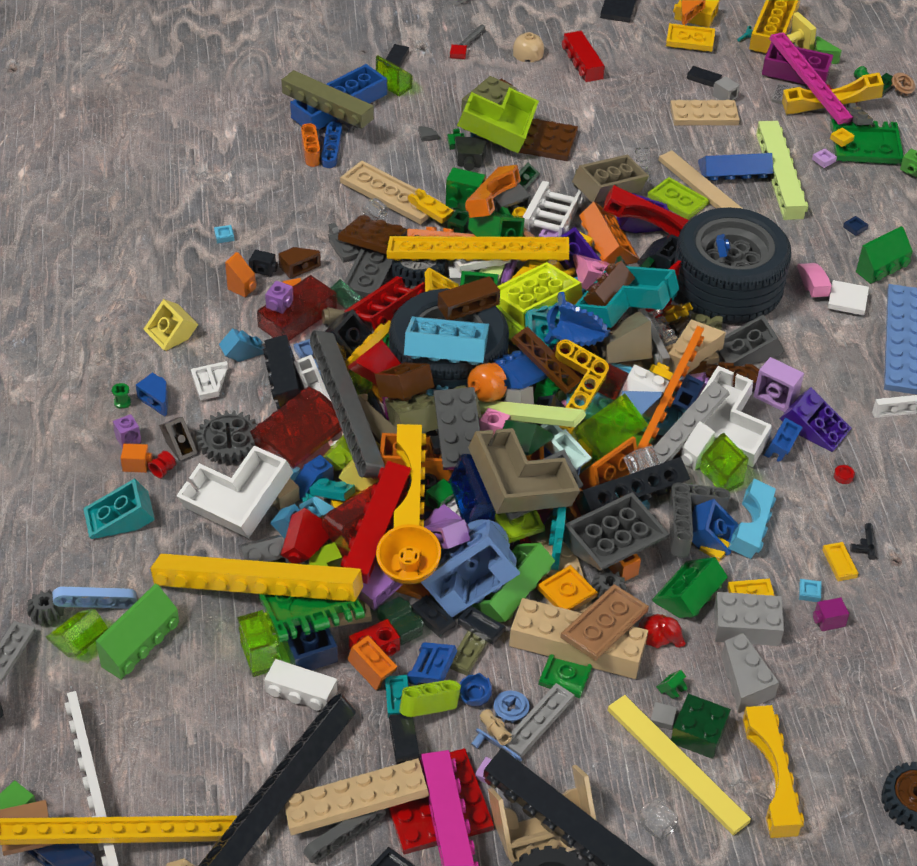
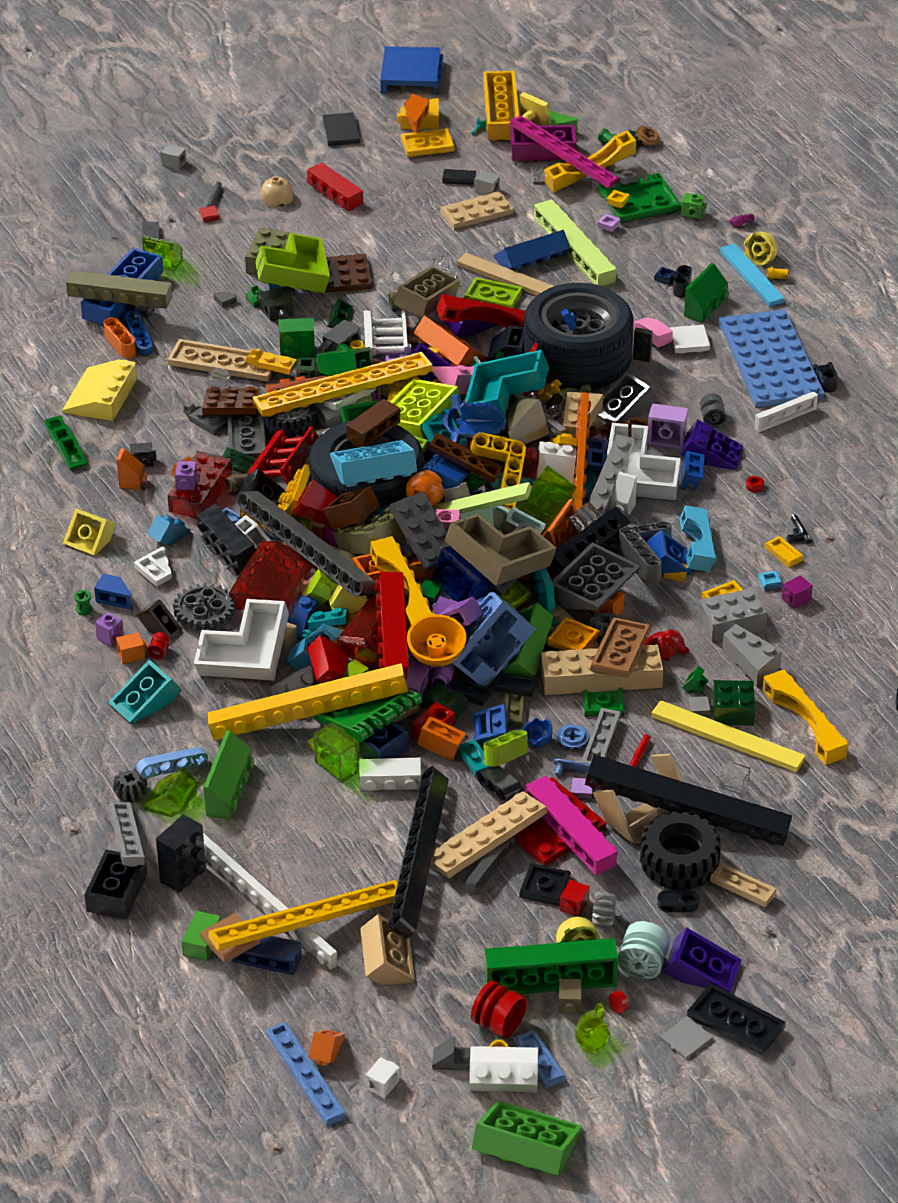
camera: 20 degrees left, 5 degrees down
(34, 708) = (181, 853): none -> black brick
(203, 230) = (65, 442): none -> green slope
(224, 234) = (86, 440): medium azure tile -> none
(267, 191) = (102, 390): none -> light yellow slope
(298, 261) = (174, 444): reddish brown slope -> none
(411, 592) = (443, 674): none -> medium lavender brick
(435, 281) = (321, 423): yellow wing -> none
(481, 201) = (326, 338): orange arch -> none
(495, 727) = (569, 753): tan pin -> none
(570, 752) = (640, 750): none -> red piece
(608, 284) = (485, 380): reddish brown brick -> none
(643, 399) = (563, 467): medium blue slope -> none
(691, 587) = (673, 605): green slope -> none
(724, 463) = (653, 501): clear neon green slope -> none
(795, 290) = (642, 344): none -> pearl dark grey plate
(835, 380) = (713, 410): none -> dark grey wheel
(868, 233) = (682, 279): none -> black beam

